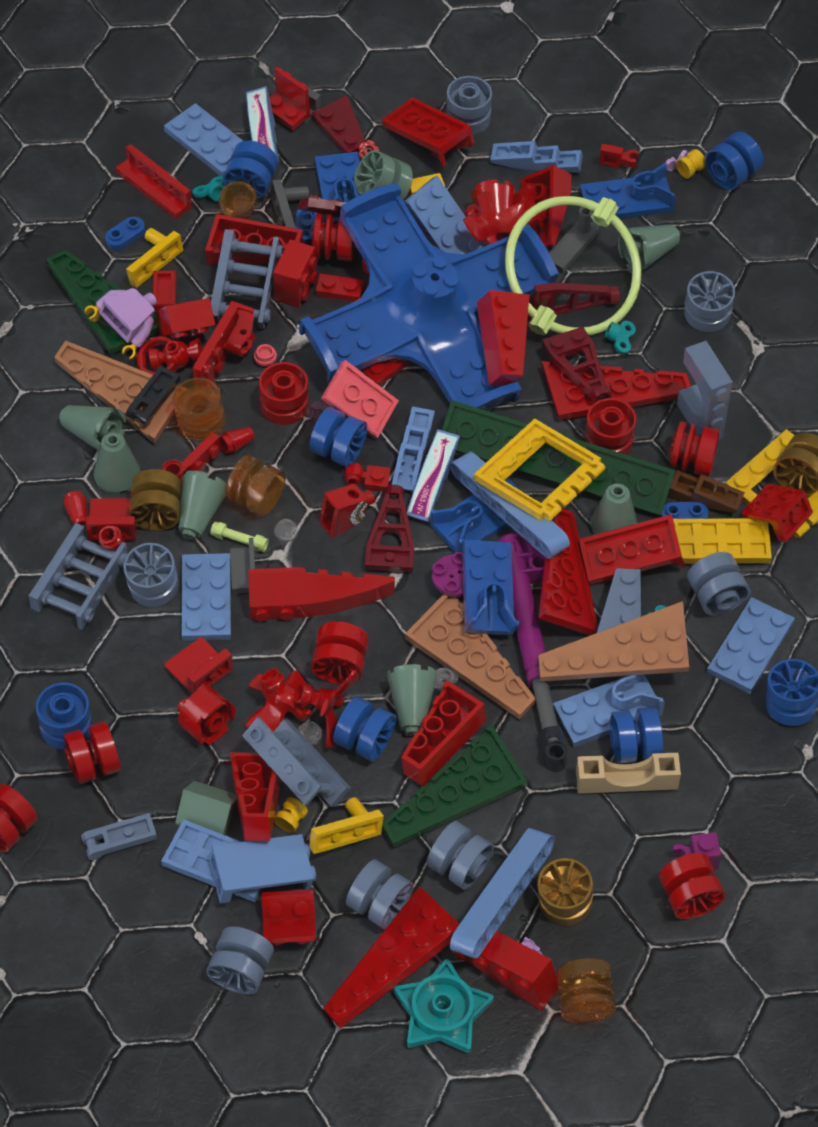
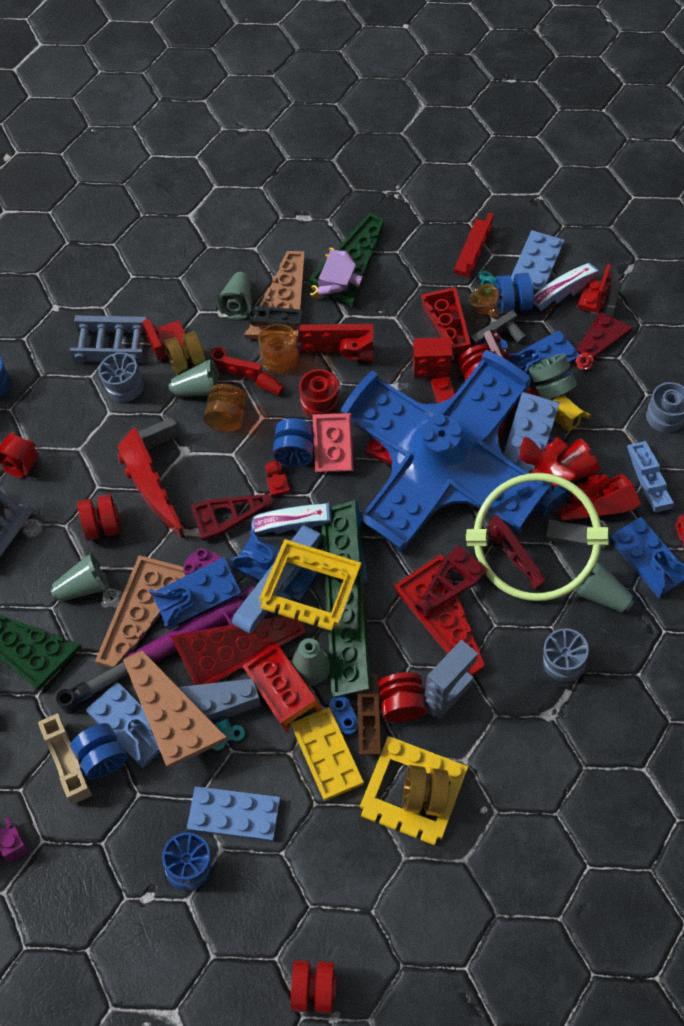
camera: 70 degrees right, 5 degrees up
(76, 507) = (166, 315): red cone -> none
(111, 537) = (142, 341): red cone -> none
(115, 465) = (209, 321): sand green cone -> none
(127, 232) = (420, 248): blue plate -> none
(164, 251) = (406, 272): yellow piece -> none
(164, 288) = (383, 291): red tile -> none
(175, 353) = (319, 312): red piece -> none
(184, 318) = (349, 306): red brick -> none
(199, 665) = (62, 438): red bracket -> none
(206, 596) = (116, 422): medium blue plate -> none
(220, 531) = (185, 431): yellowish green bar -> none
(227, 265) = (401, 314): sand blue fence -> none
(265, 355) = (355, 372): coral plate -> none
(279, 697) = (51, 497): red animal -> none
(286, 530) = (203, 446): clear plate -> none
(325, 700) = (47, 526): red animal -> none
(344, 509) = (233, 472): red torso -> none
(364, 728) = (37, 558): blue wheel -> none
(413, 448) = (323, 494): medium blue slope -> none
(429, 128) = (627, 390): red plate -> none
(443, 732) = (56, 612): red wedge -> none
(503, 333) = (439, 510): red wedge -> none
(611, 425) = (393, 626): red wheel -> none
(620, 335) = (501, 602): teal piece -> none
(718, 583) = (267, 768): sand blue wheel -> none
(782, 507) = (372, 787): red bracket -> none

